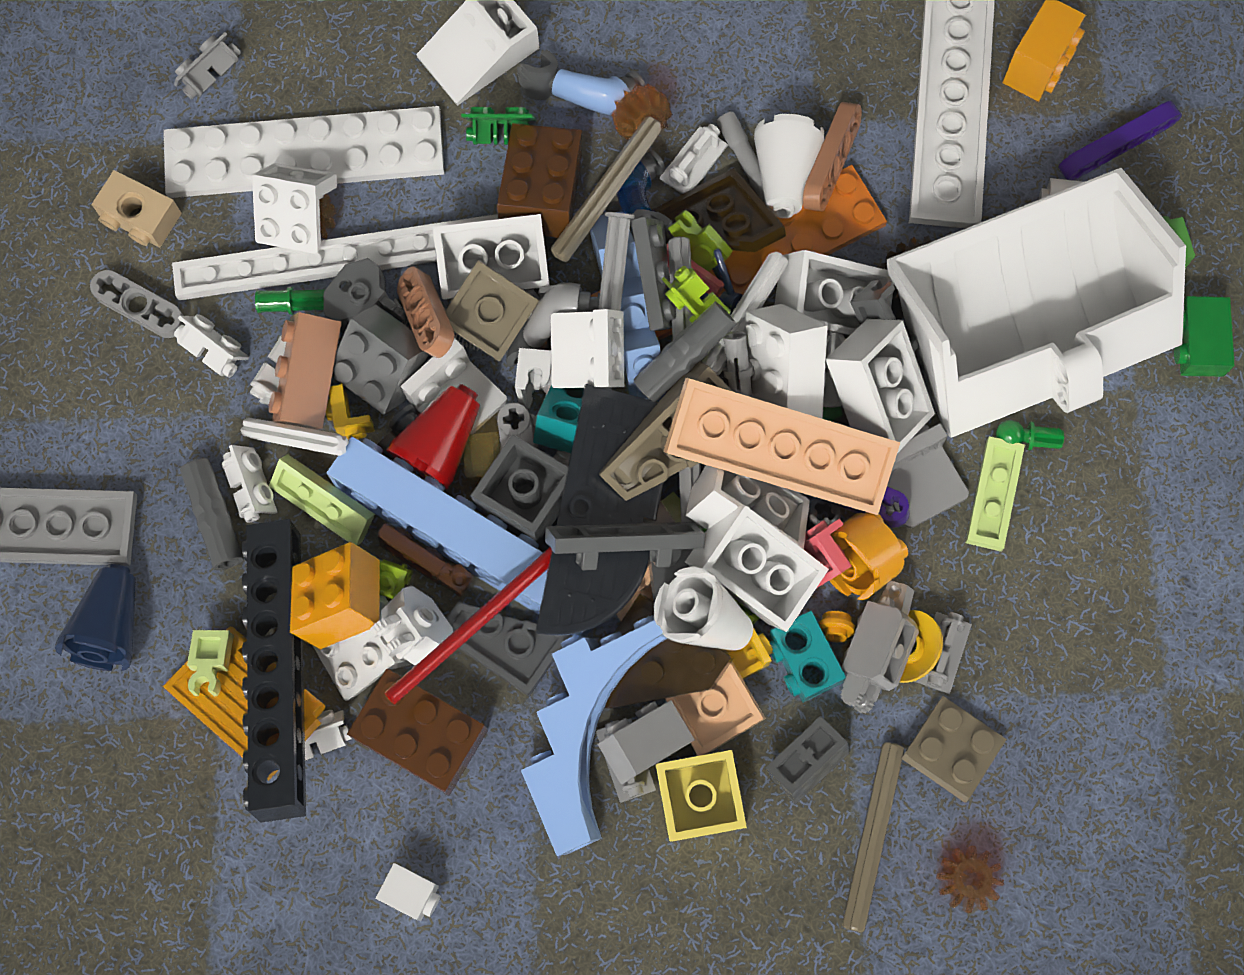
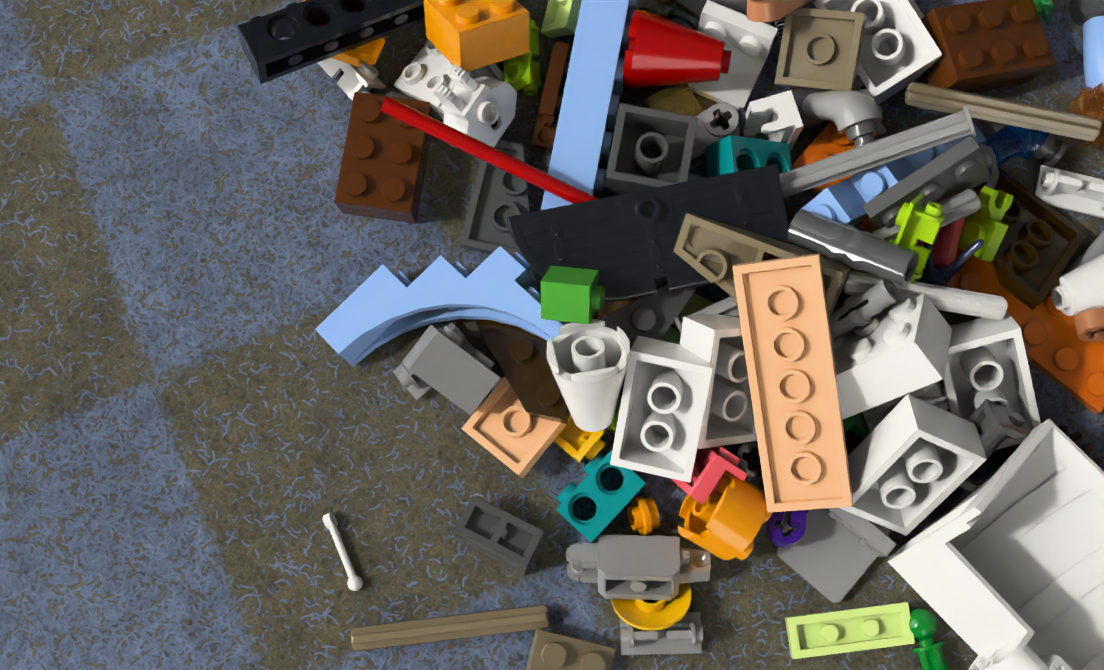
camera: 75 degrees right, 5 degrees up
(409, 893) = (237, 210): white brick -> none
(587, 349) = (814, 152): white bracket -> none
(592, 539) = (633, 263): dark grey hinge -> none
(629, 602) = (571, 294): none -> bright green brick
(701, 795) = (421, 443): light yellow brick -> none
(801, 910) = (354, 582): none -> white hinge

